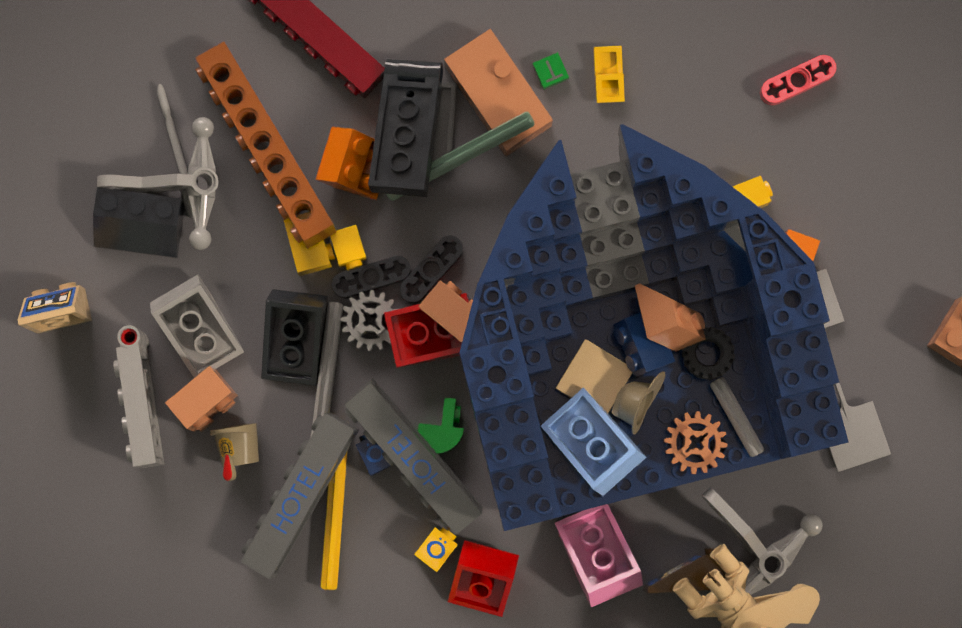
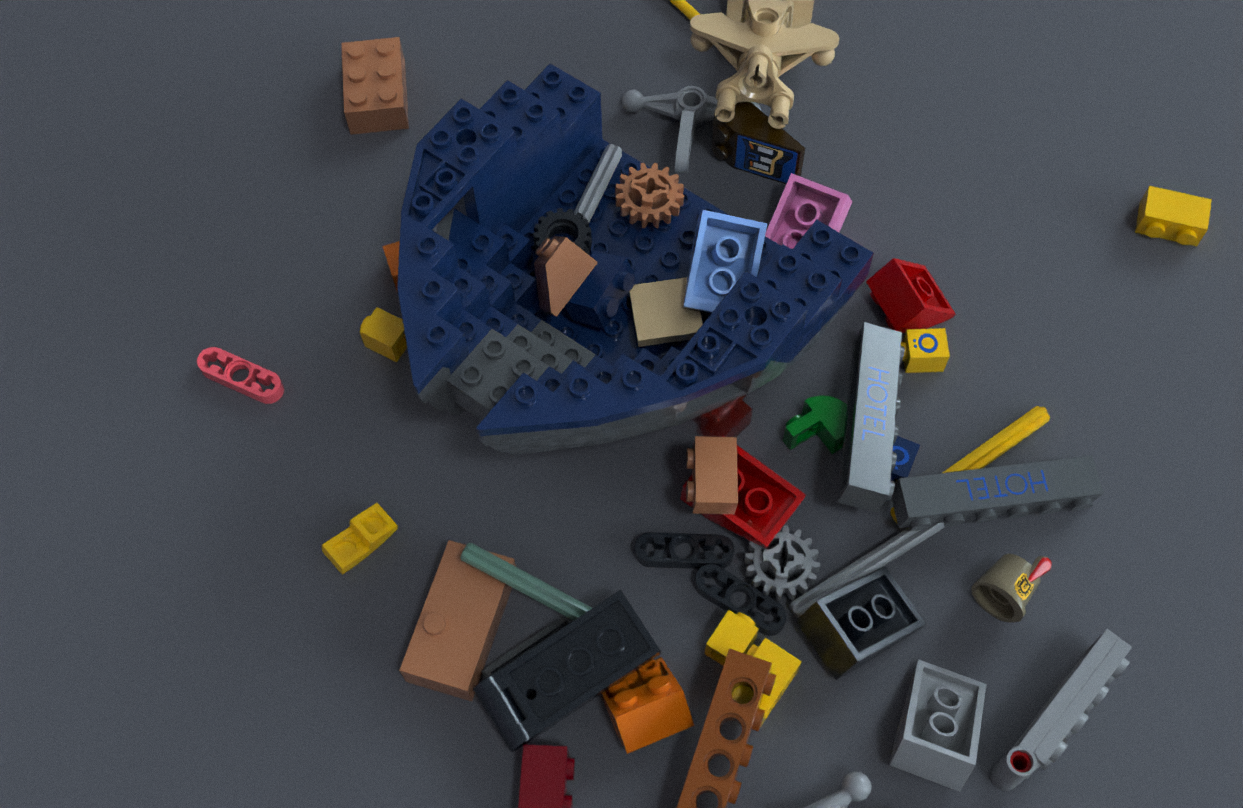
camera: 125 degrees left, 20 degrees down
(202, 400) = (1003, 649): nougat brick -> none
(550, 71) = (397, 593): green tile -> none
(635, 400) = (656, 259): dark tan piece -> none

